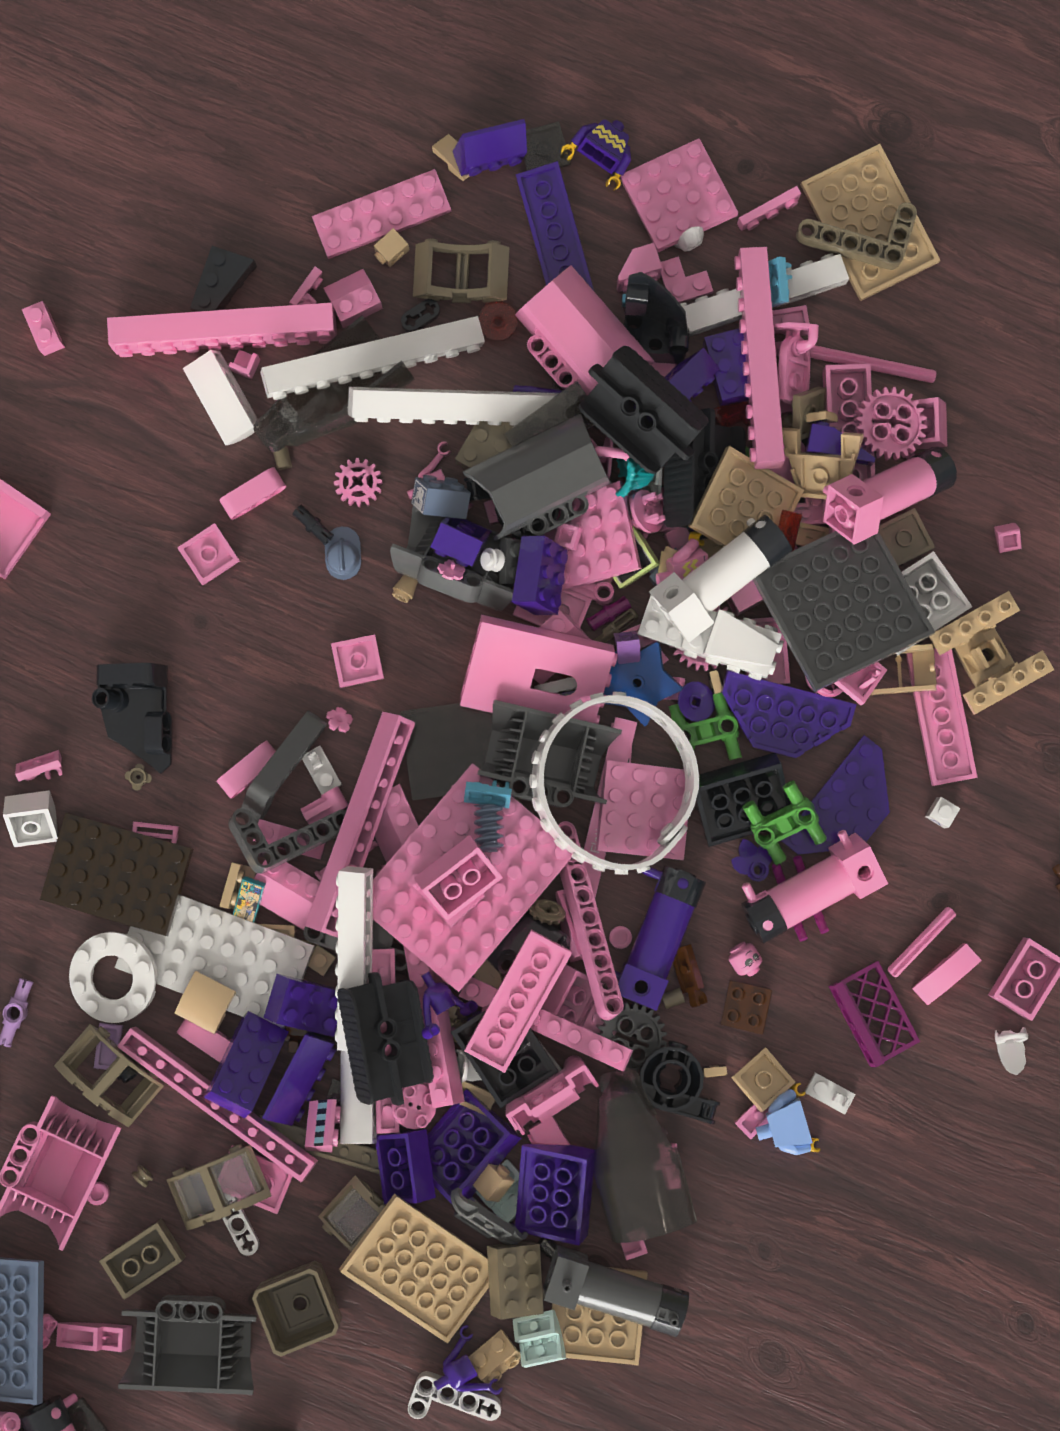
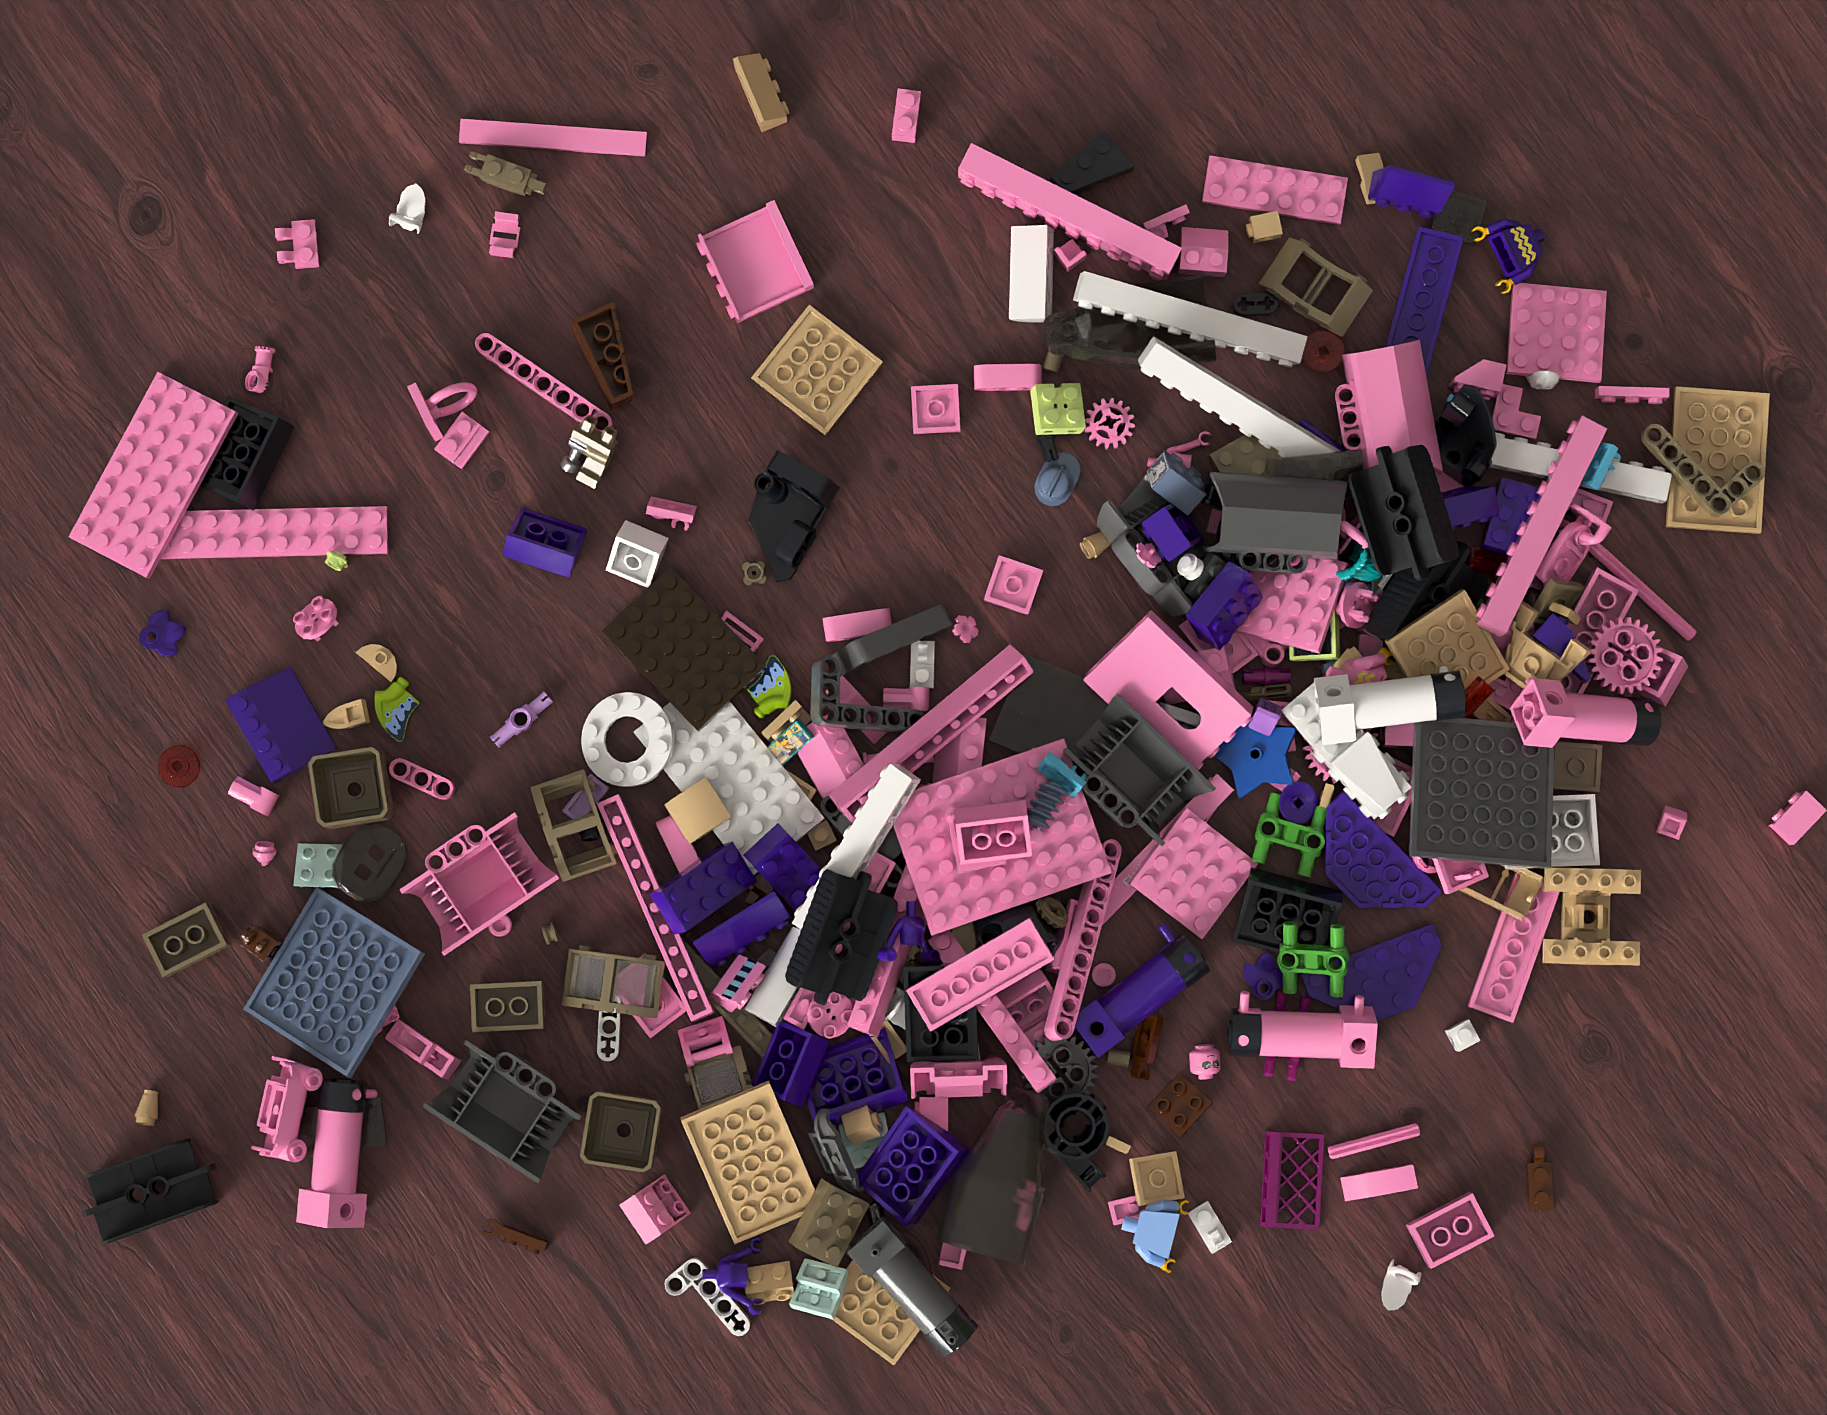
camera: 30 degrees right, 0 degrees up
(92, 579) = (817, 370): none -> tan plate
(209, 863) = (772, 689): none -> lime arm
(308, 495) = (1058, 409): none -> yellowish green piece
(319, 1185) = (703, 1035): none -> bright pink plate
(364, 1353) = (655, 1209): none -> bright pink slope
(568, 536) = (1270, 585): bright pink plate -> none
(669, 834) = (1205, 906): white piece -> none

